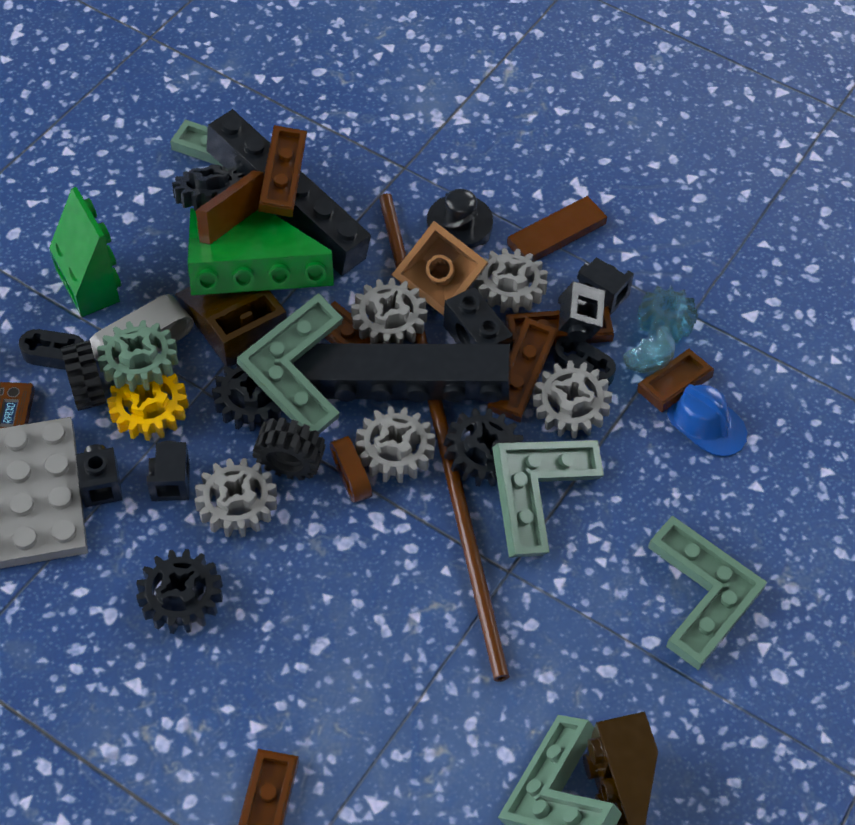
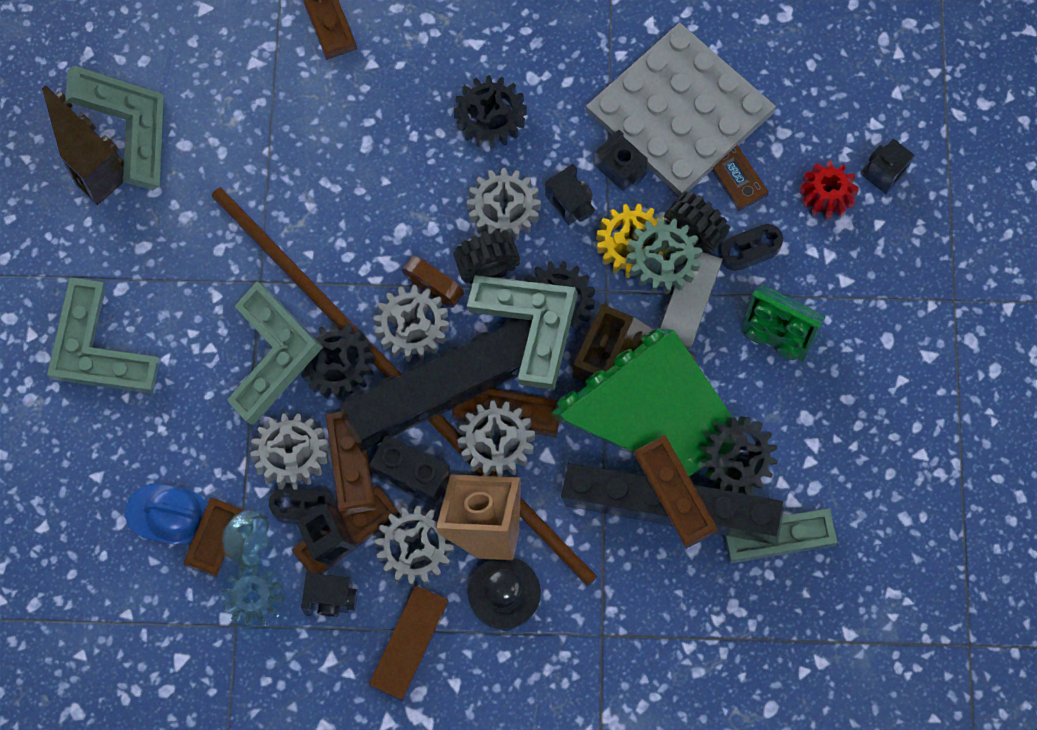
camera: 150 degrees right, 15 degrees up
(229, 207) = (693, 427): reddish brown tile -> none

